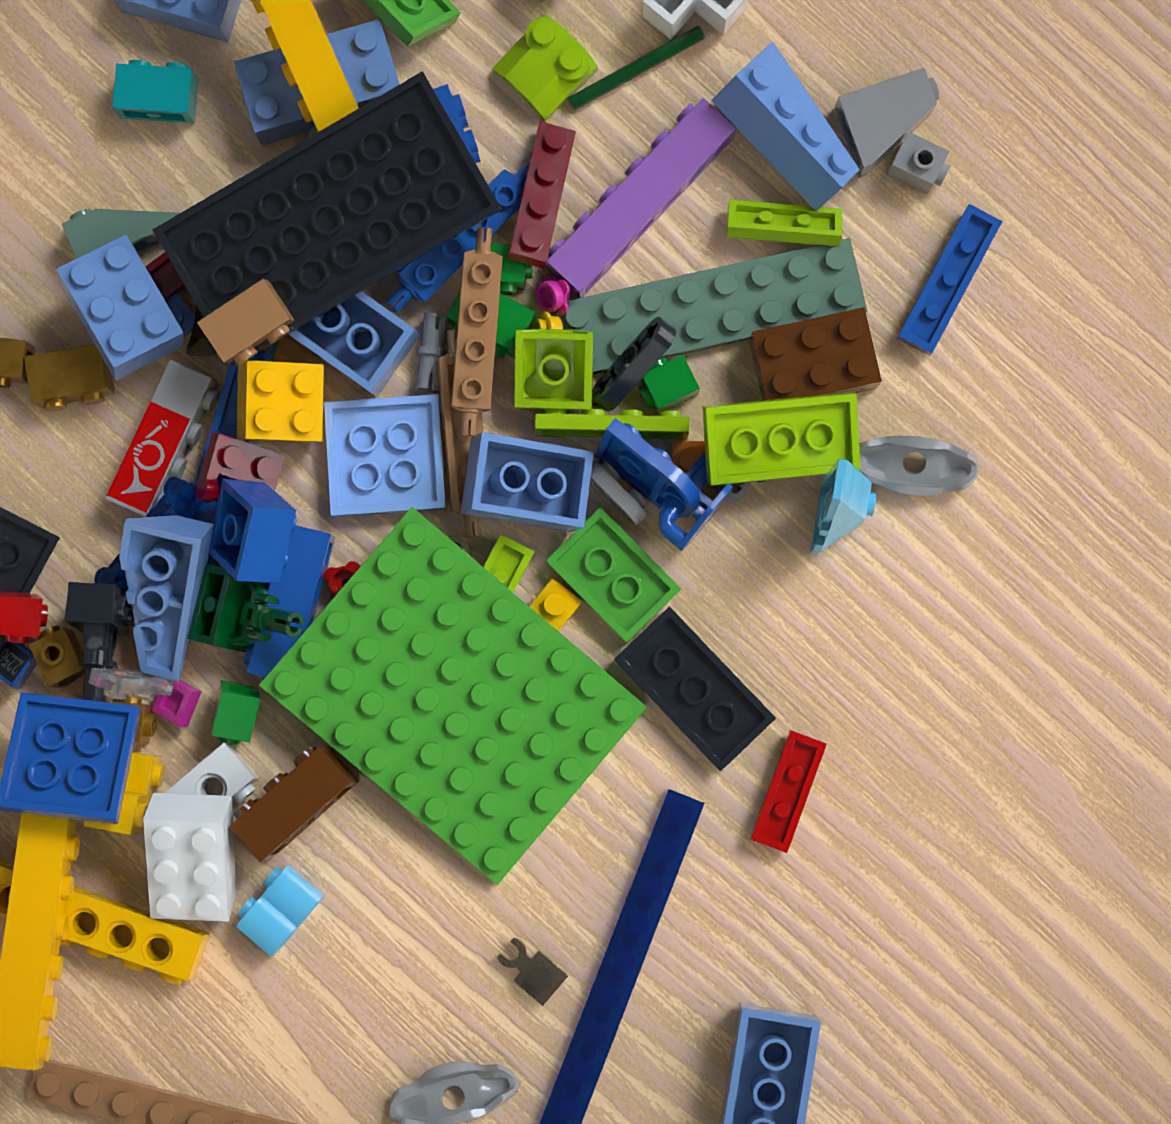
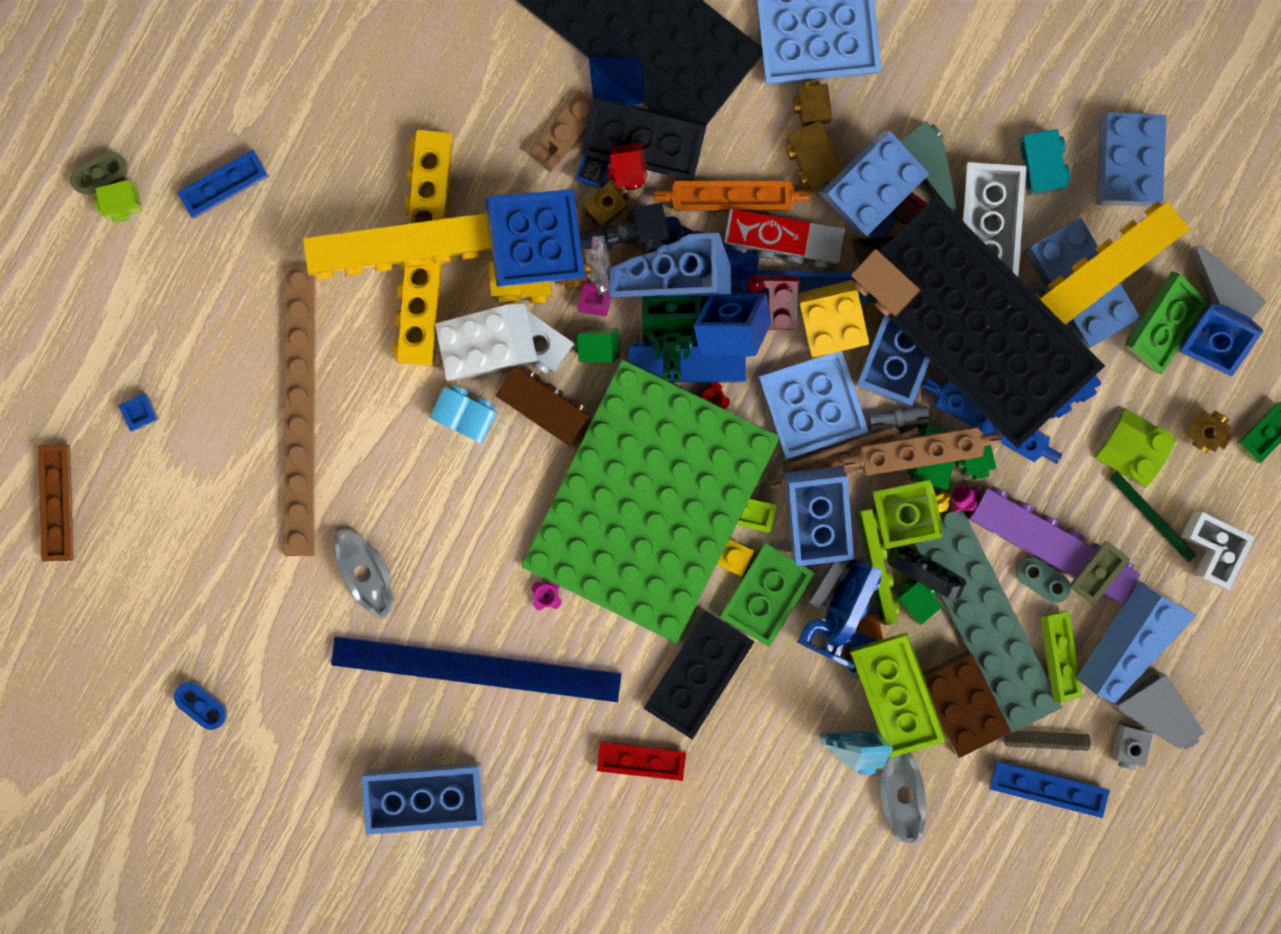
camera: 75 degrees right, 5 degrees up
(87, 504) = (732, 195): none -> orange plate
(190, 162) = (996, 208): none -> white slope
(537, 975) = (464, 610): clear smoke plate -> none
(541, 195) = (1037, 471): dark red plate -> none
(550, 869) = (540, 601): none -> dark pink plate
(683, 221) = (1044, 580): none -> sand green plate
(687, 147) = (1099, 572): none -> olive plate
(887, 266) = (1048, 740): none -> clear smoke axle

